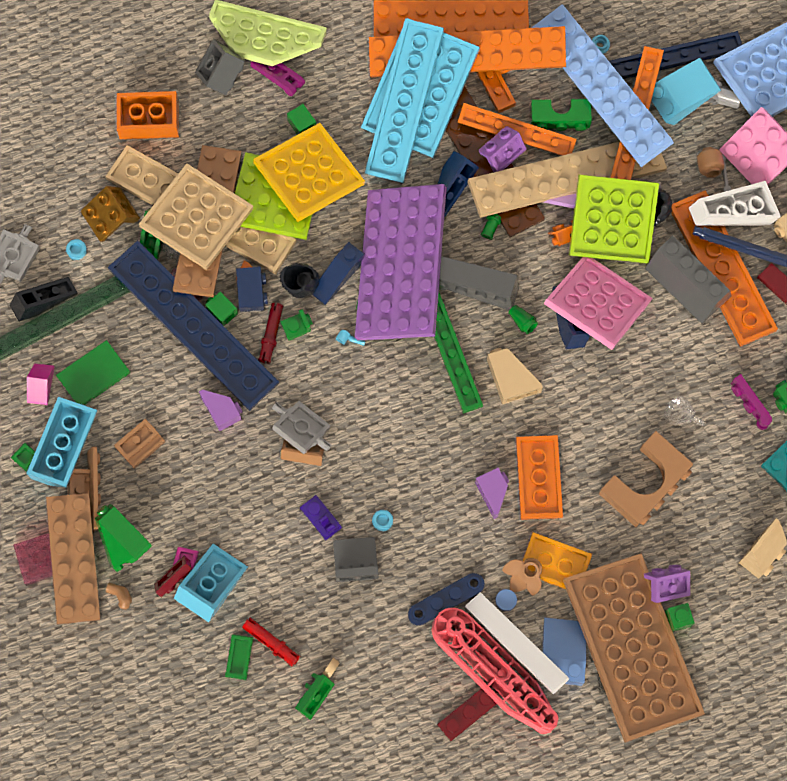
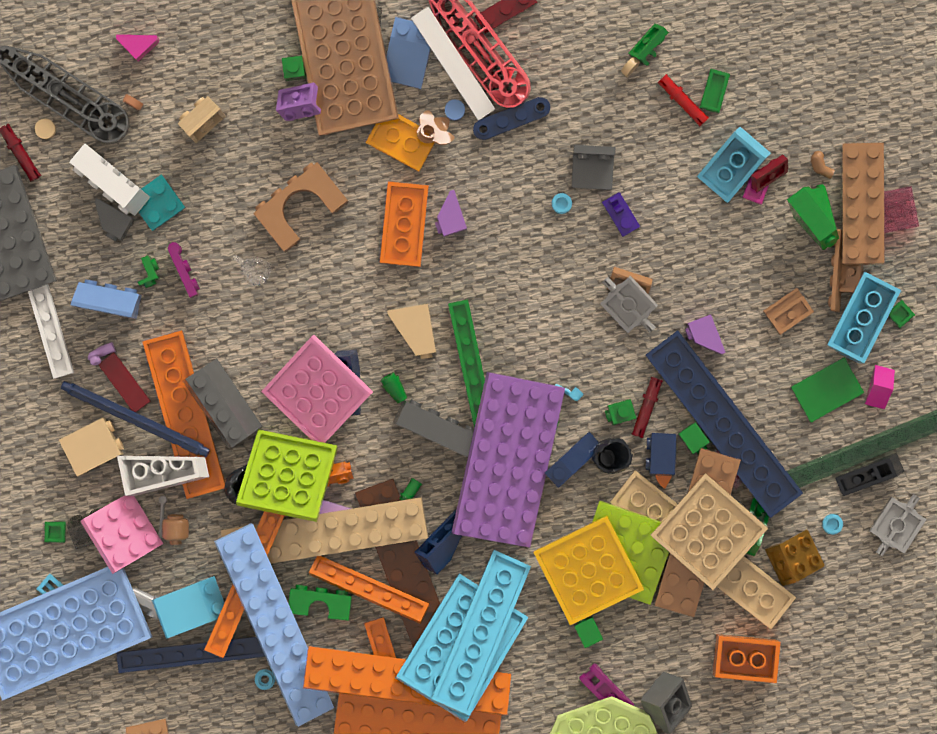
camera: 175 degrees left, 15 degrees up
(503, 149) = (387, 568): medium lavender bracket -> none

